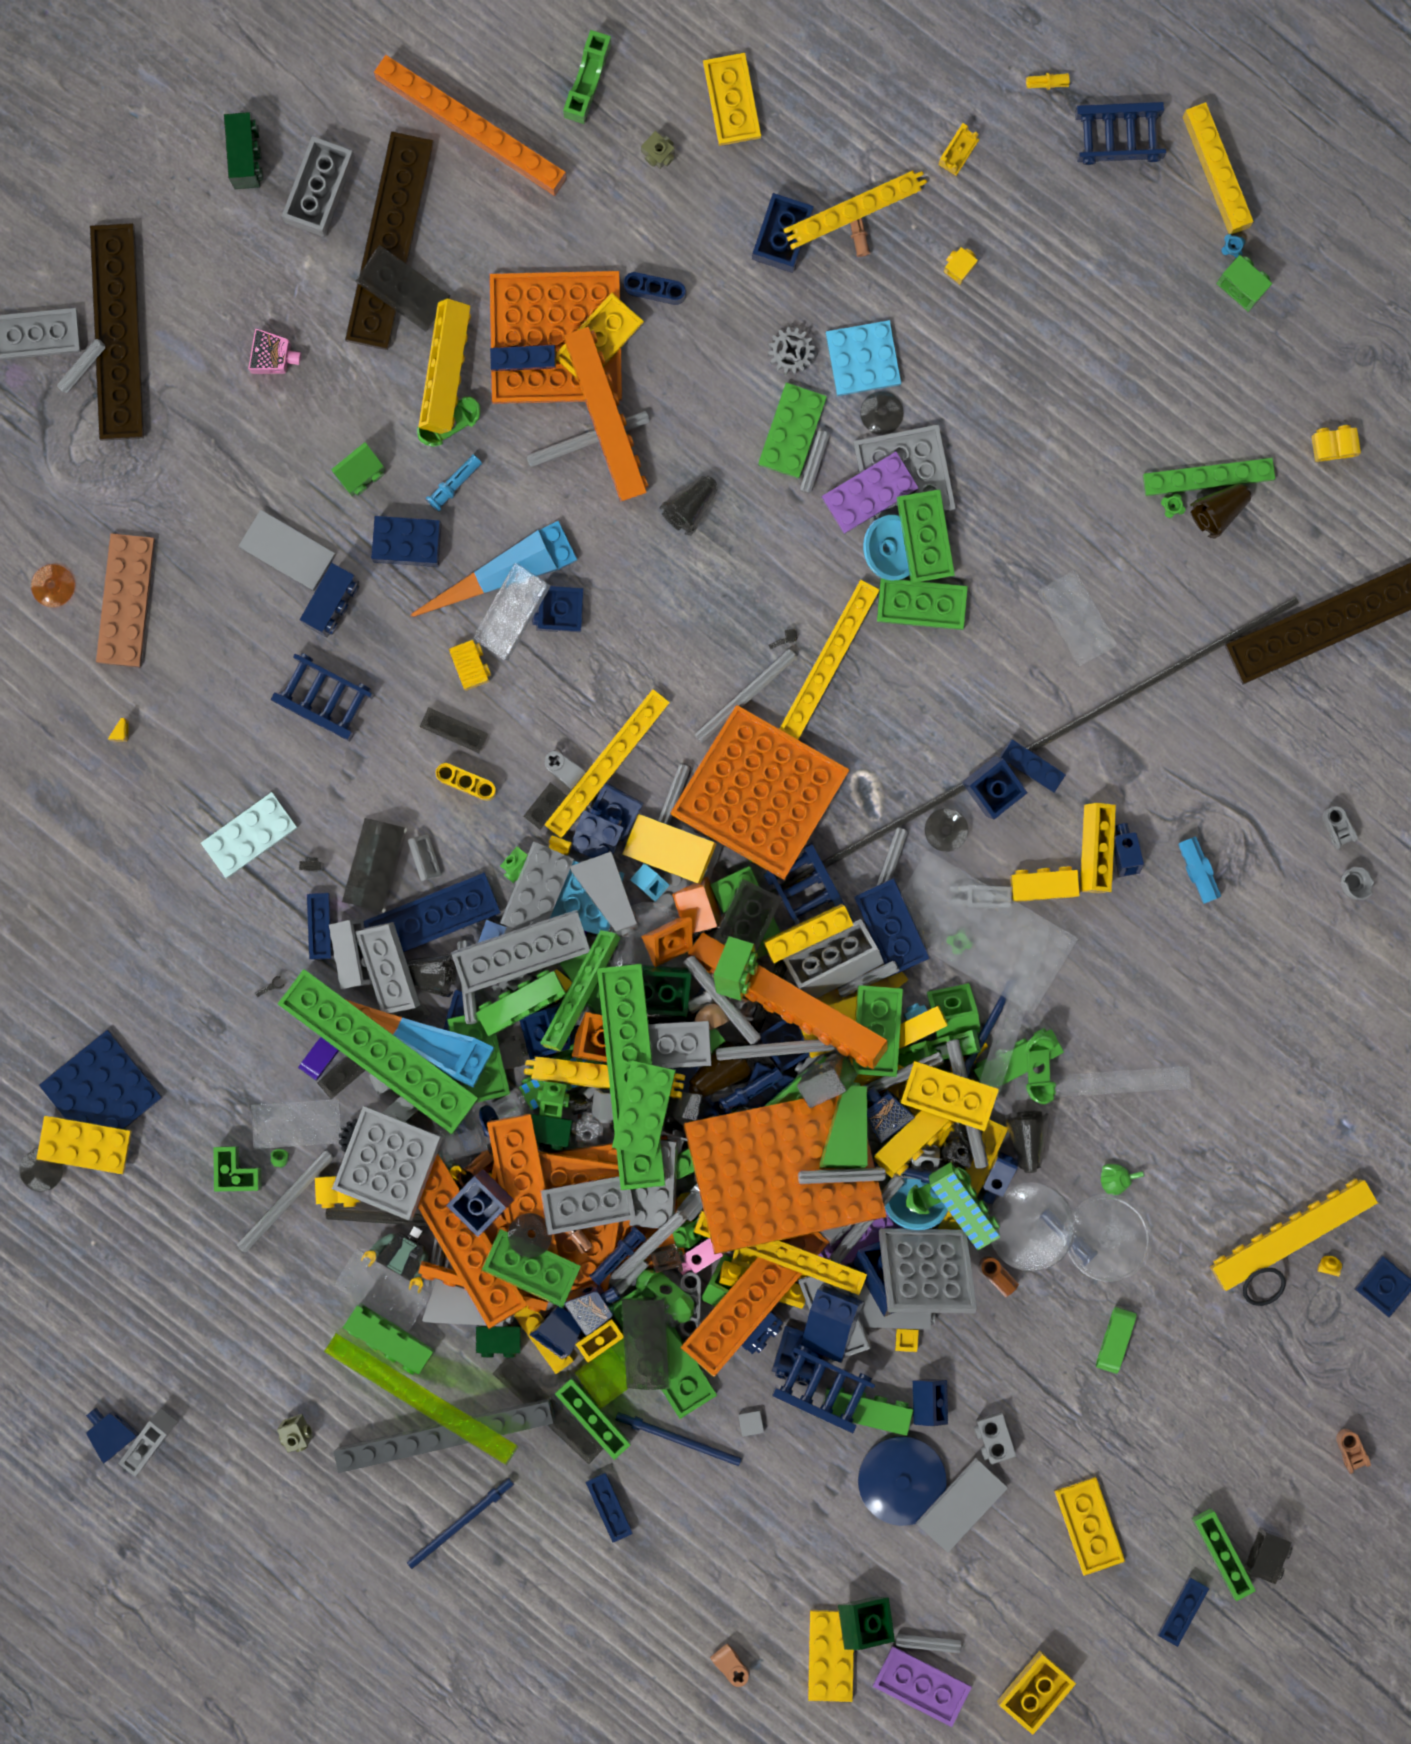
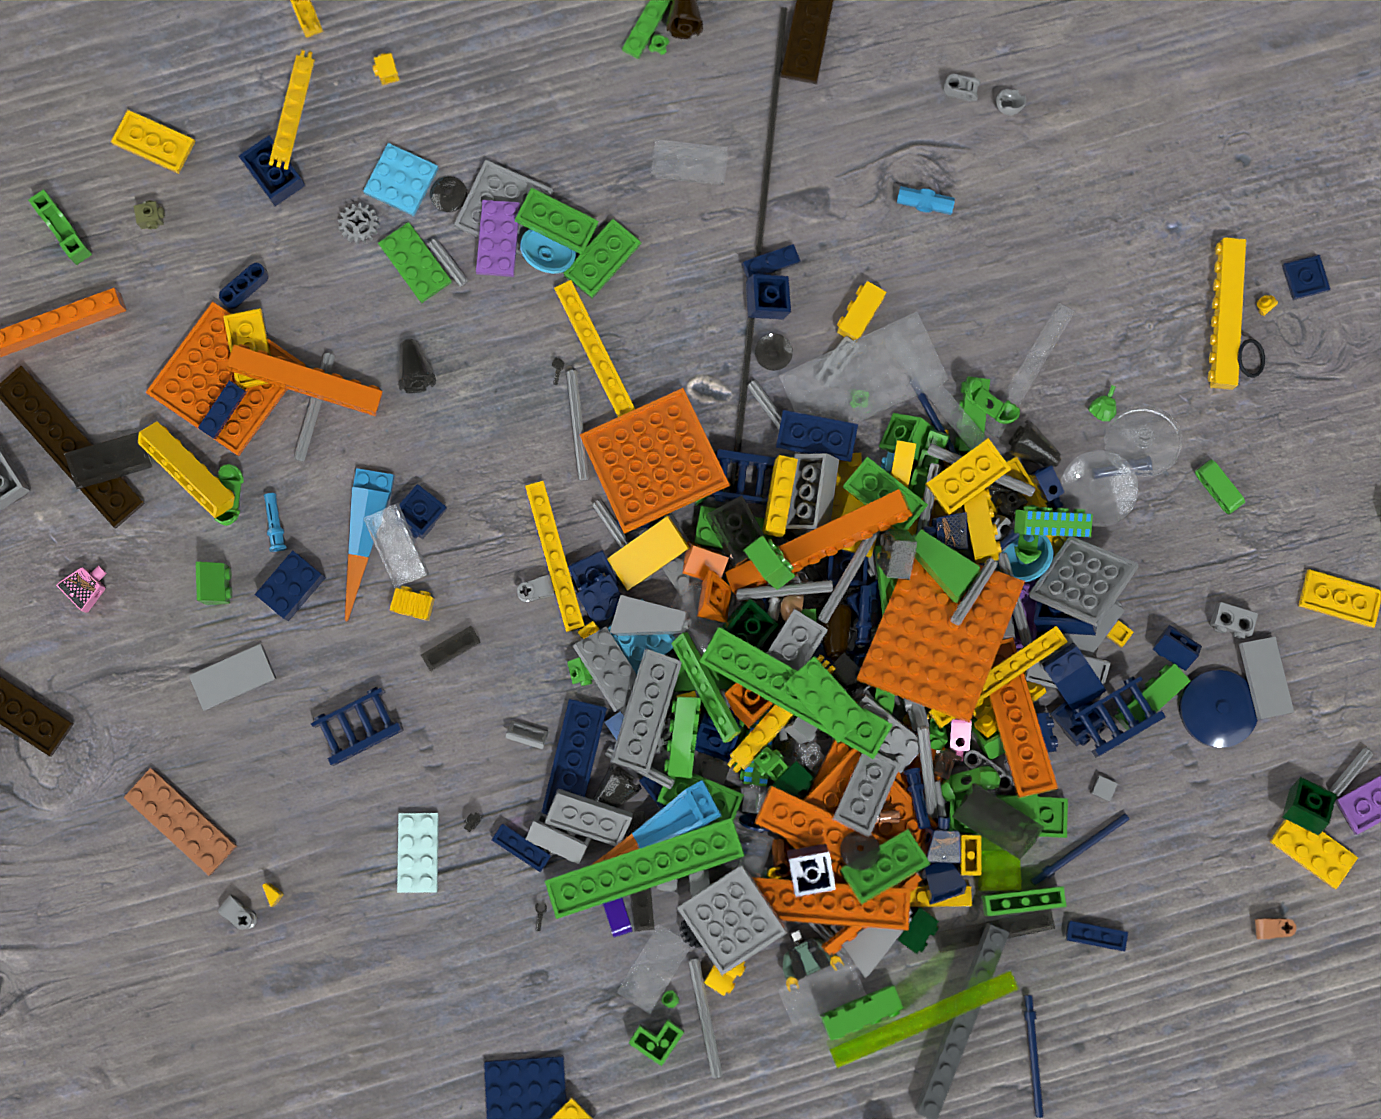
camera: 55 degrees left, 5 degrees down
(60, 593) = (139, 868): clear orange dish -> none
(81, 709) = (235, 911): none -> light grey piece
(330, 600) = (291, 670): dark blue brick -> none
(372, 1216) = (762, 960): clear smoke axle -> none
(374, 865) = (506, 775): clear smoke slope -> none
(458, 774) = (484, 666): yellow beam -> none
(545, 806) = (553, 621): clear smoke plate -> none
(649, 882) = (662, 584): medium azure brick -> none
(859, 237) = (315, 123): nougat axle -> none
(868, 978) = (842, 477): light grey axle -> none
(999, 1277) = (1118, 537): dark orange piece -> none
(1097, 848) = (861, 256): yellow brick -> none
(1128, 860) = (878, 239): dark blue torso -> none

